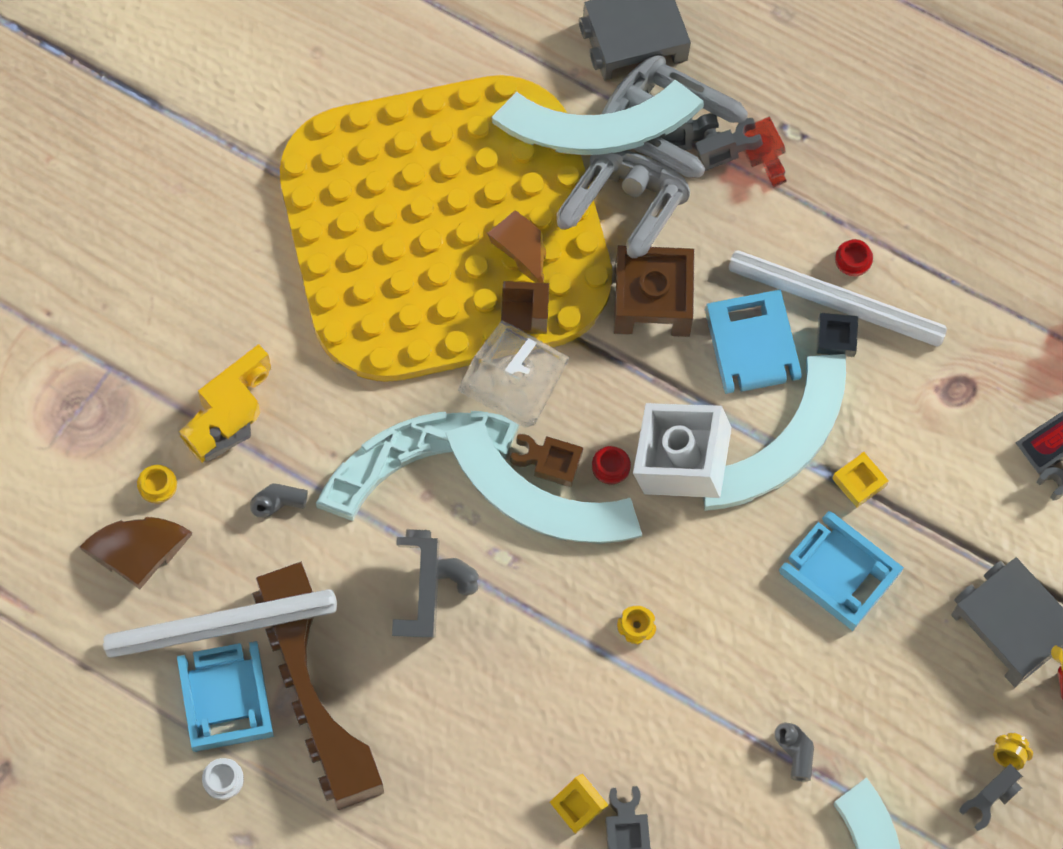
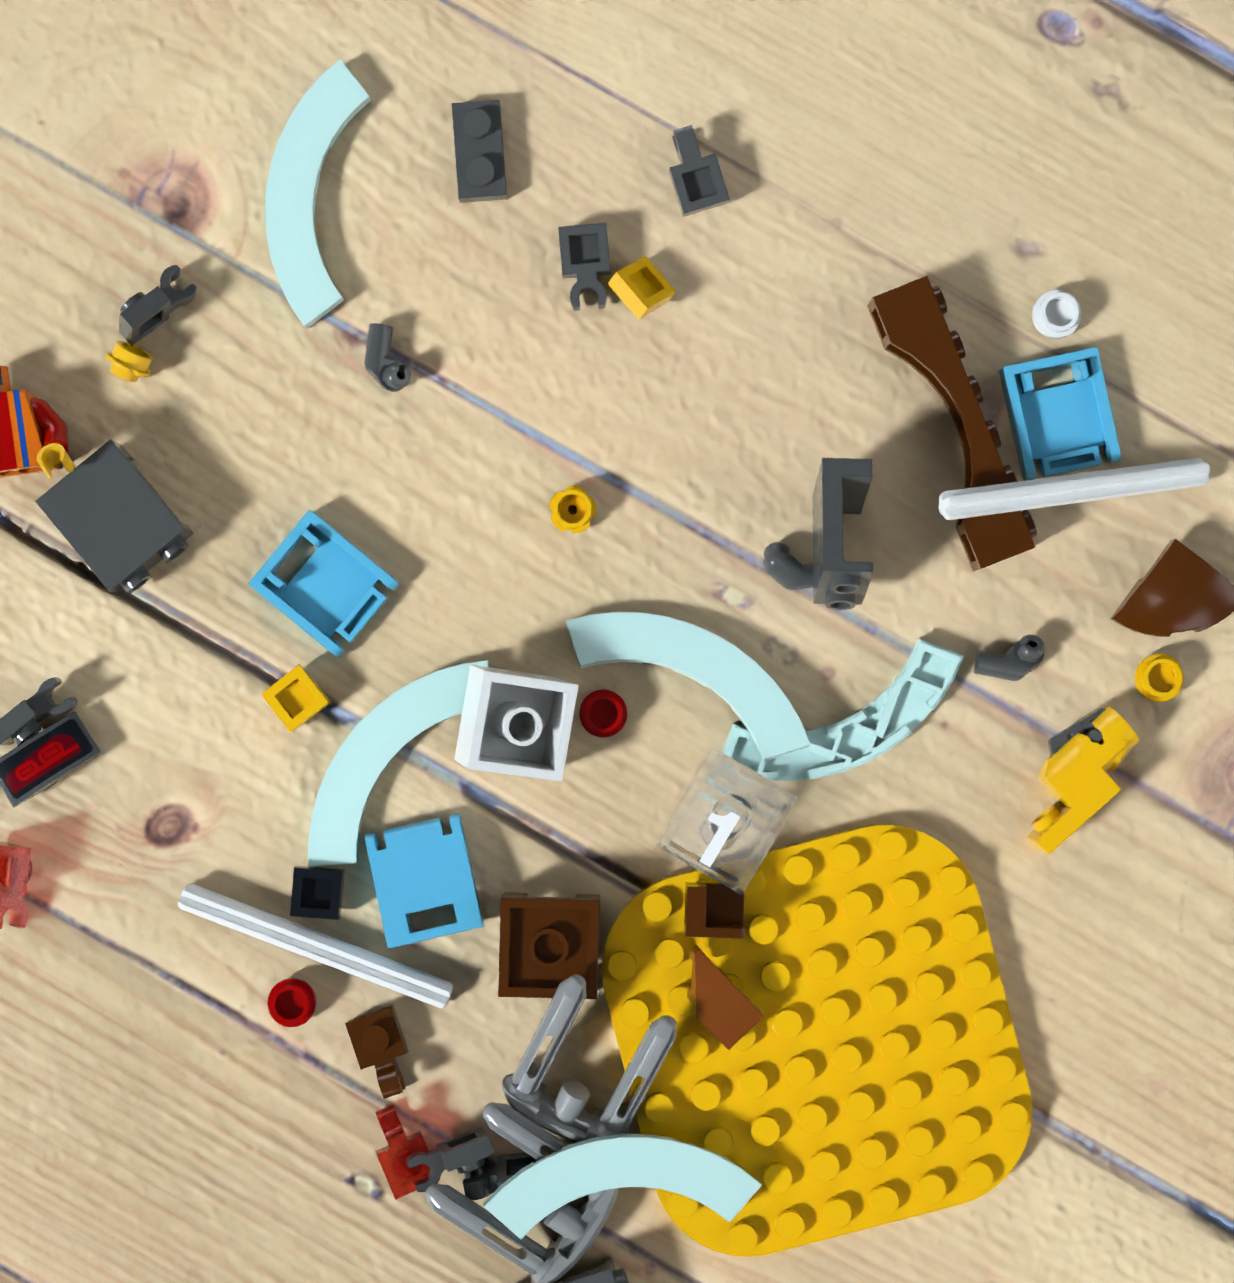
camera: 175 degrees left, 20 degrees up
(554, 460) = (674, 716): reddish brown plate -> none
(784, 228) = (378, 1042): none -> reddish brown plate

